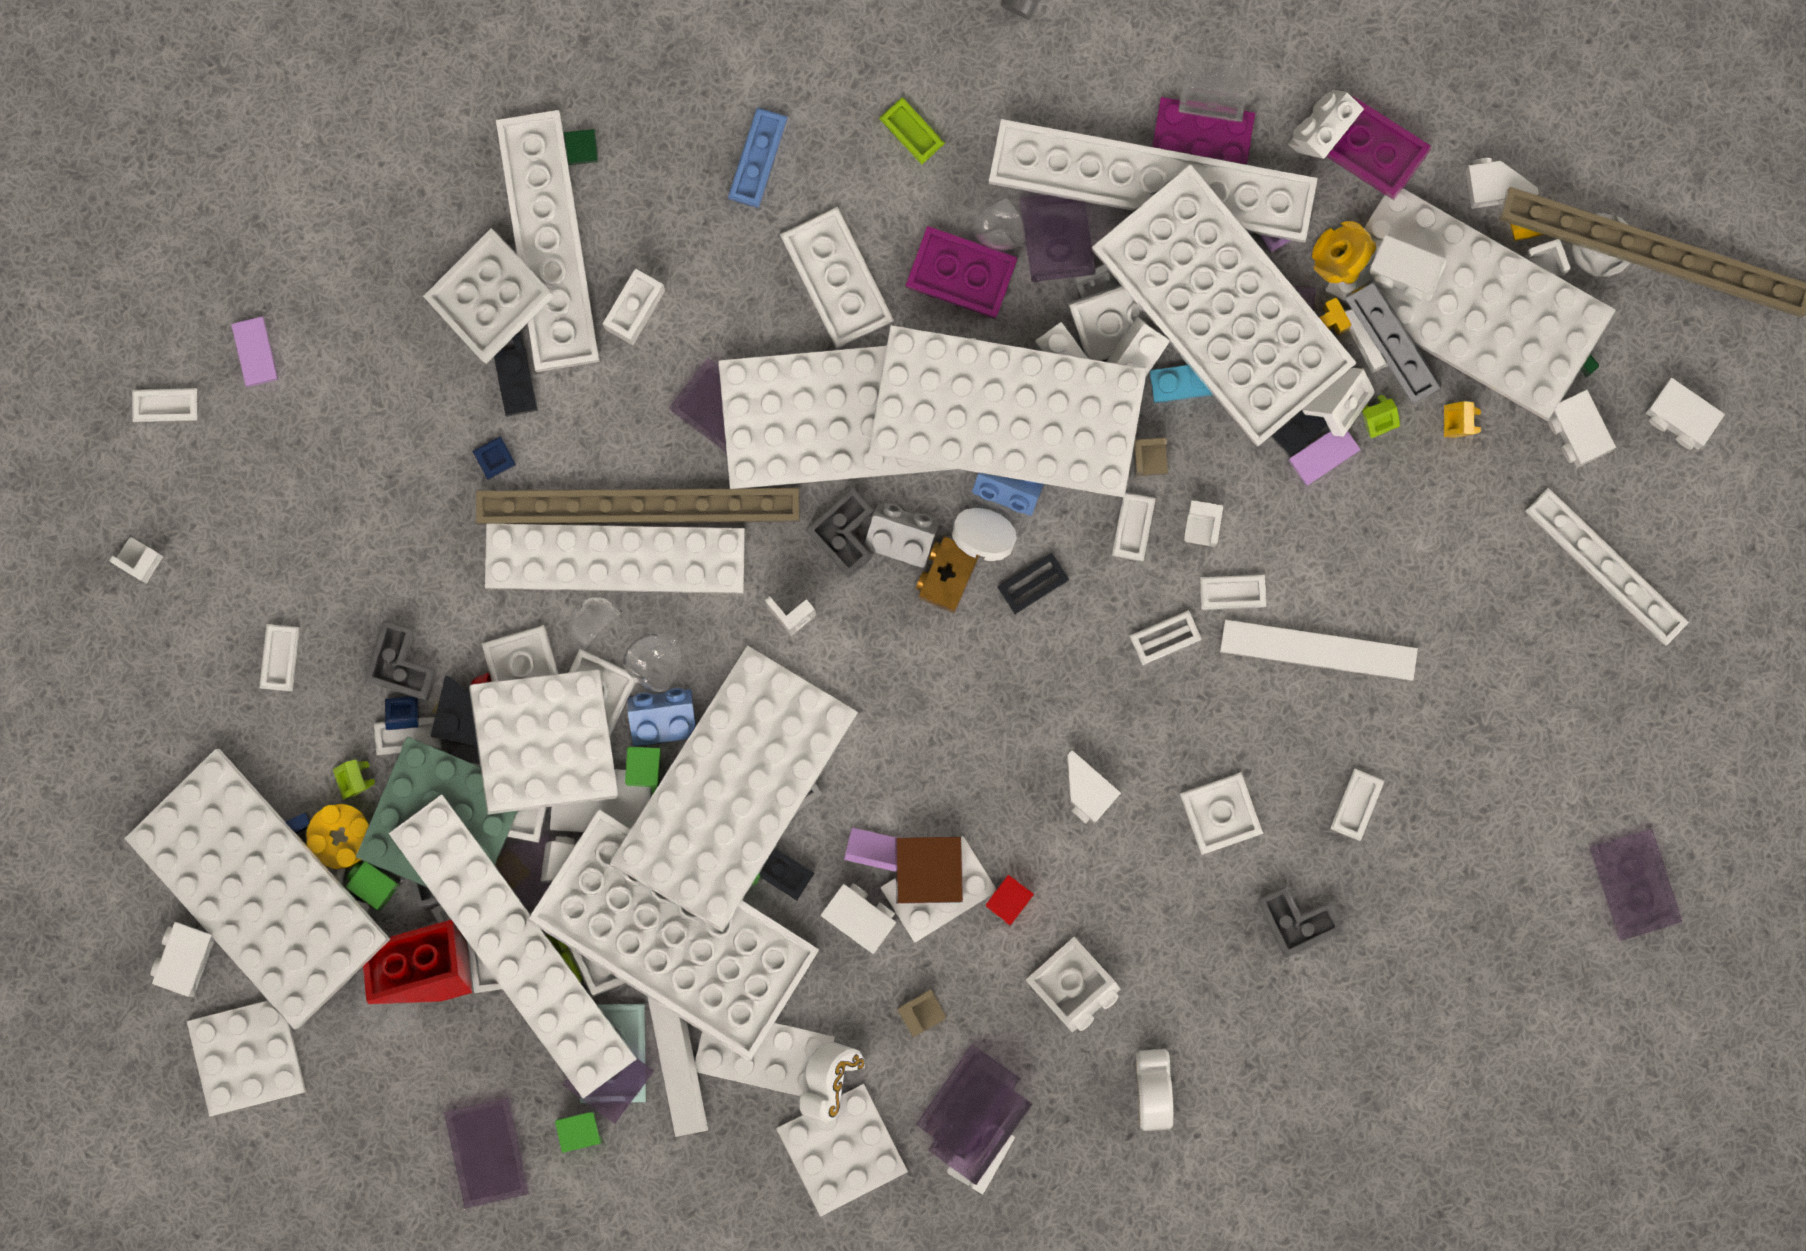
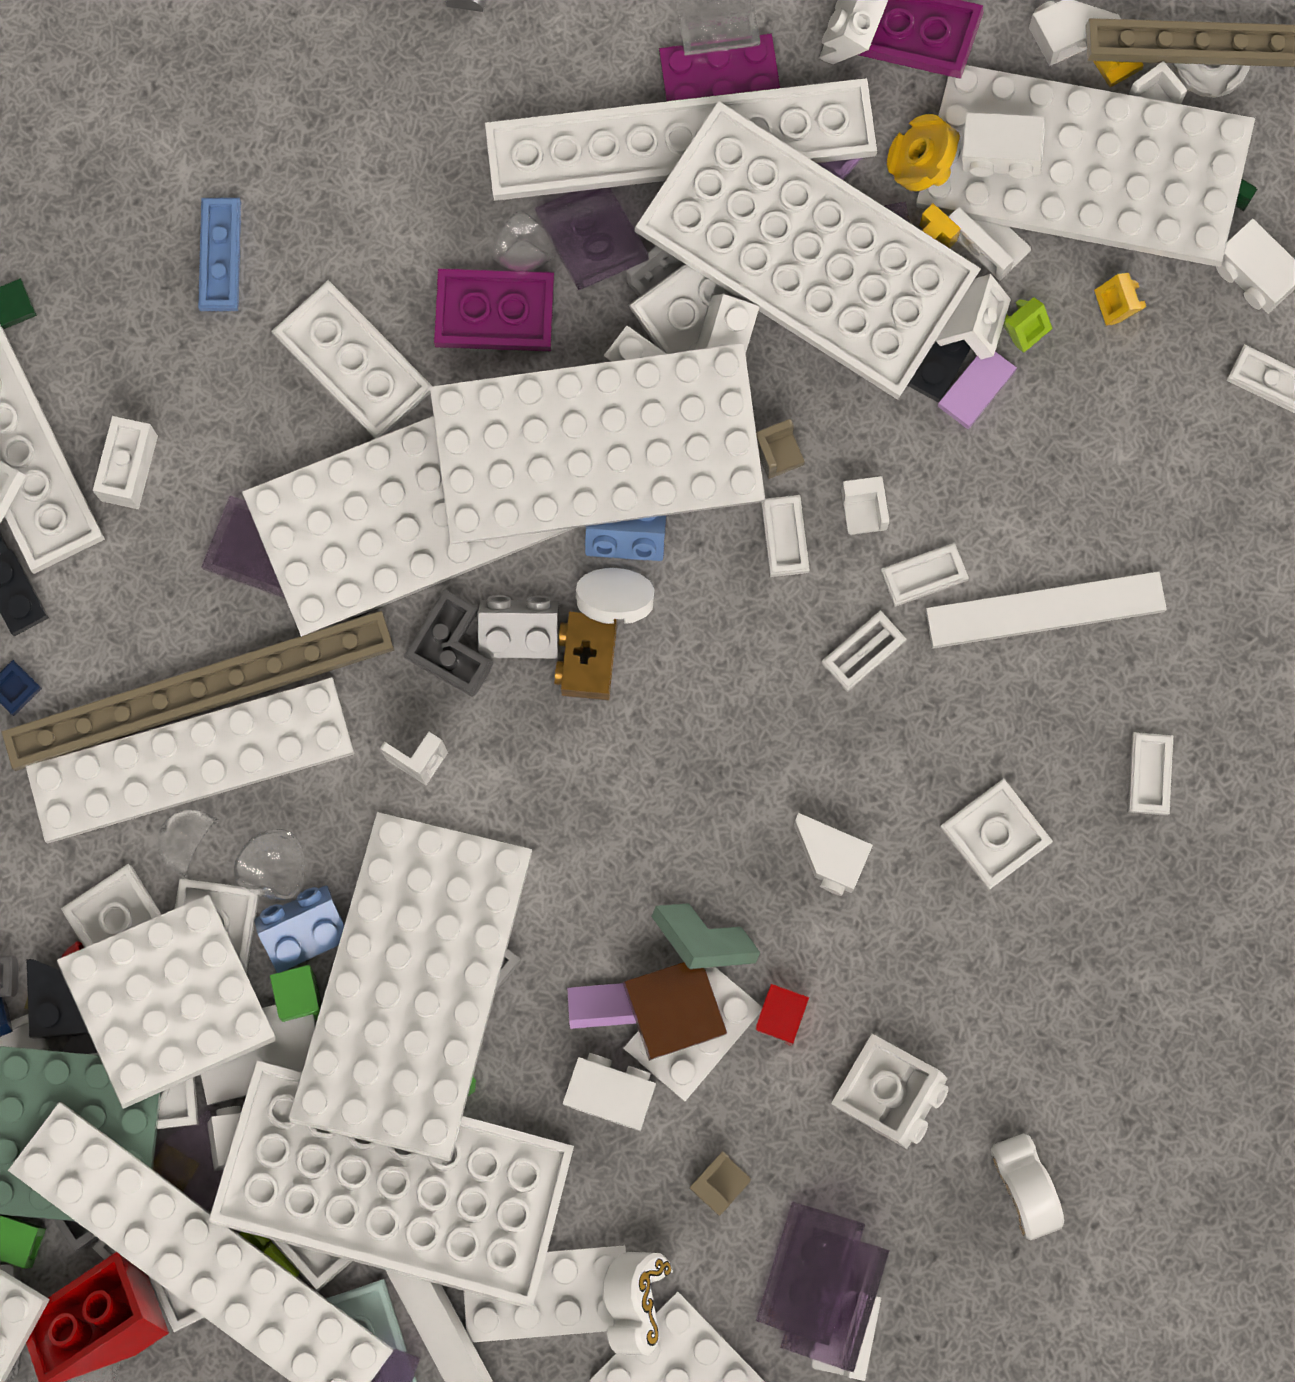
camera: 20 degrees left, 5 degrees down
(786, 874) = (506, 1068): black hinge -> none
(912, 130) = (387, 170): lime tile -> none
(963, 828) = (703, 946): none -> sand green tile
(1010, 598) = (668, 662): black tile -> none
(1176, 384) = (783, 359): medium azure plate -> none
(1297, 931) = (1126, 942): flat silver brick -> none
(1393, 341) = (1014, 232): plate -> none

